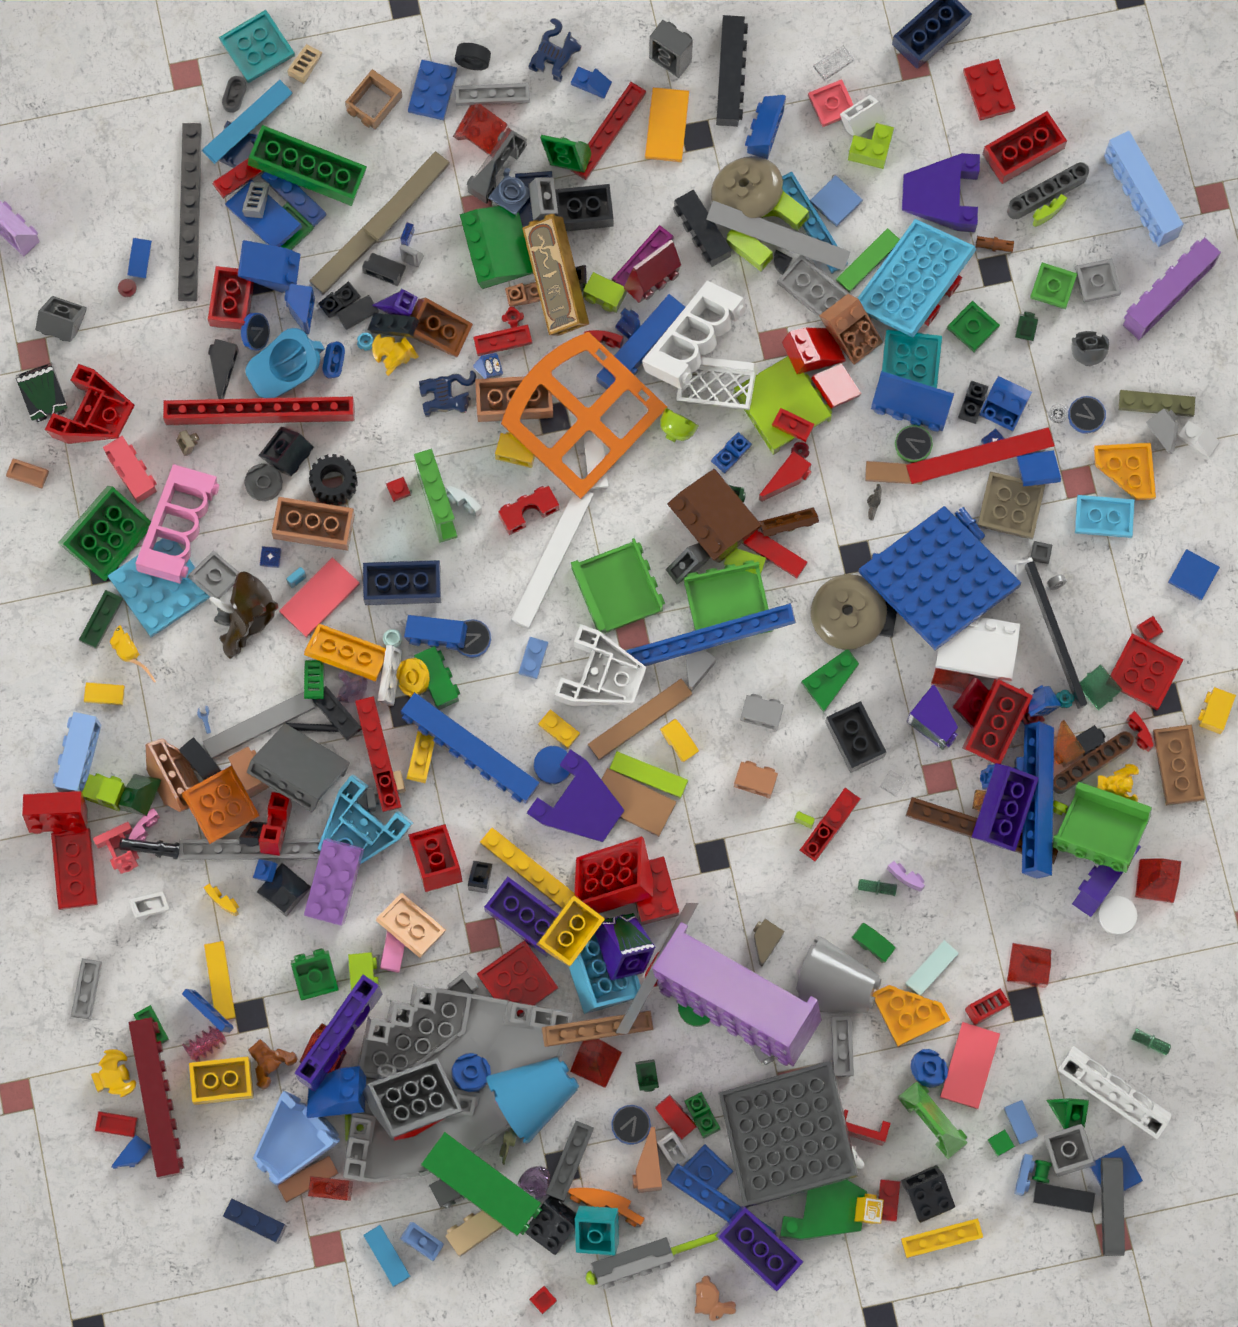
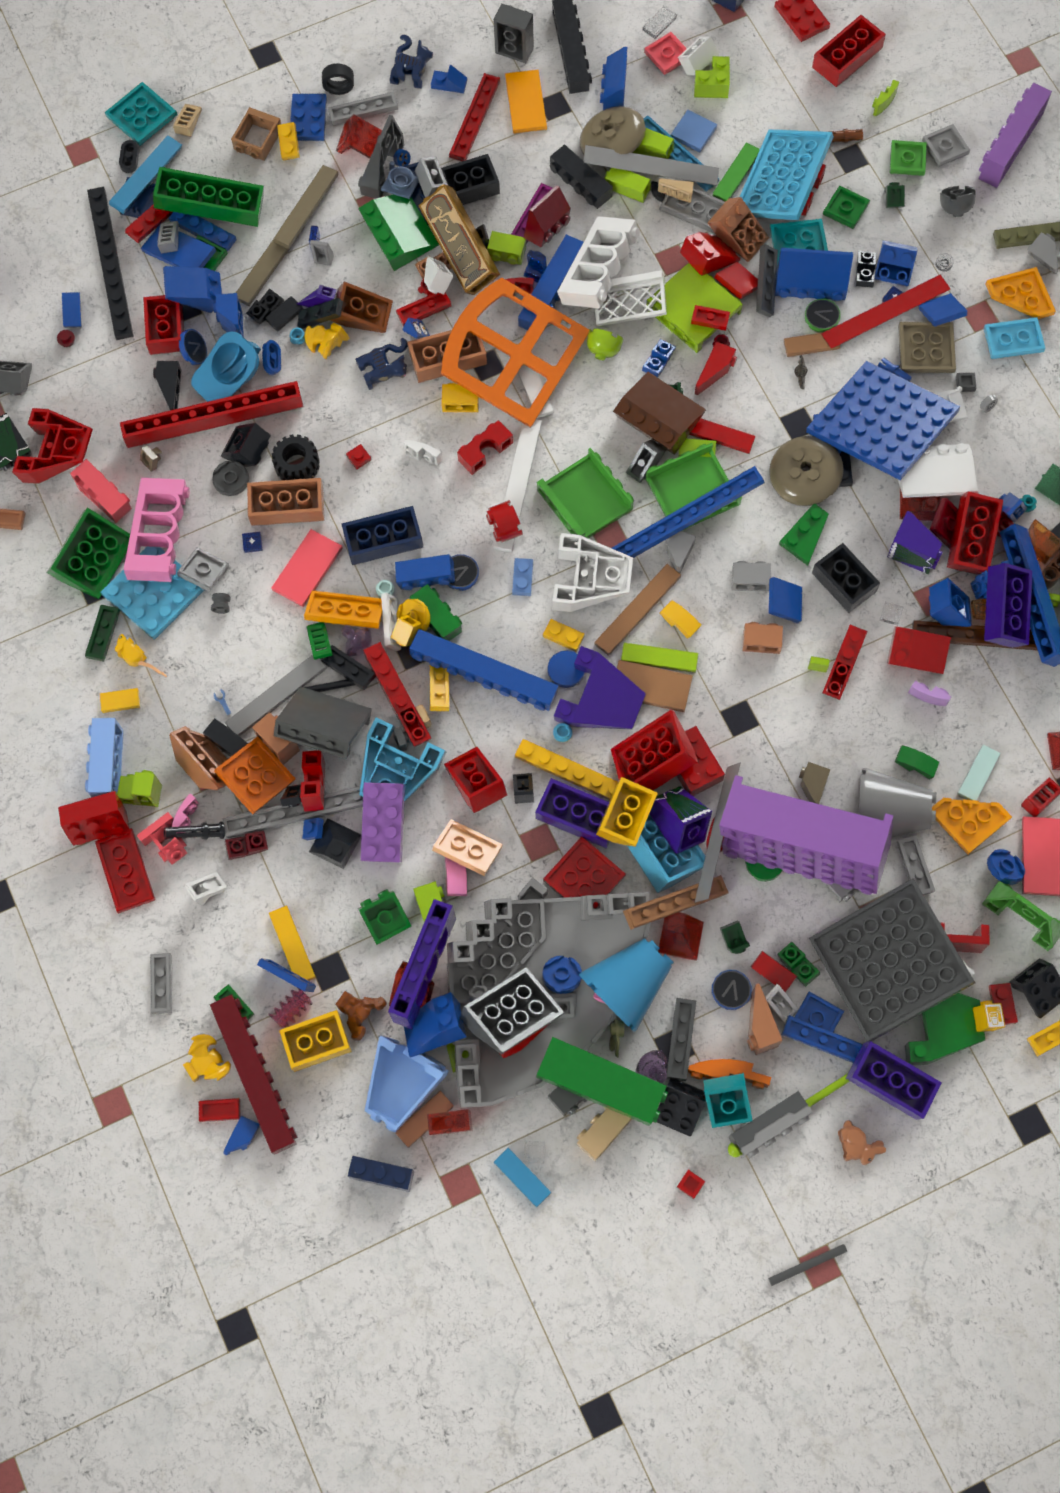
camera: 10 degrees left, 5 degrees down
(139, 794) = (173, 784): dark green slope -> none
(197, 871) = (247, 845): none -> dark red slope
(225, 903) = (280, 868): yellow slope -> none
(249, 613) = (243, 594): dark brown animal -> none
(296, 577) = (281, 554): medium azure tile -> none
(384, 269) = (299, 273): black panel -> none
(401, 690) = (405, 630): none -> yellow brick
(405, 115) = (288, 141): none -> yellow plate
(422, 1241) = (554, 1154): medium blue plate -> none
(435, 495) = (394, 446): bright green panel -> none
(519, 163) = (402, 157): none -> blue tile
(523, 310) = (437, 276): none -> white slope
(527, 599) = (504, 521): none -> red brick
(532, 829) = (562, 732): none -> medium azure plate
(566, 153) = (441, 135): green slope -> none
(789, 522) = (729, 405): reddish brown plate -> none
(789, 745) = (785, 600): none -> blue tile
(799, 268) = (675, 188): none -> tan slope
(864, 393) = (766, 280): none -> dark grey plate
(877, 887) = (905, 710): clear green axle -> none
(907, 829) = (918, 650): none -> red slope
(935, 192) = (782, 103): dark purple wedge -> none
(952, 789) = (949, 604): none -> blue slope
(1052, 183) = (878, 82): dark grey beam -> none
(1055, 634) = (1003, 446): black tile -> none
(1086, 414) = (970, 257): black tile -> none
(1143, 189) = (964, 60): light blue brick -> none

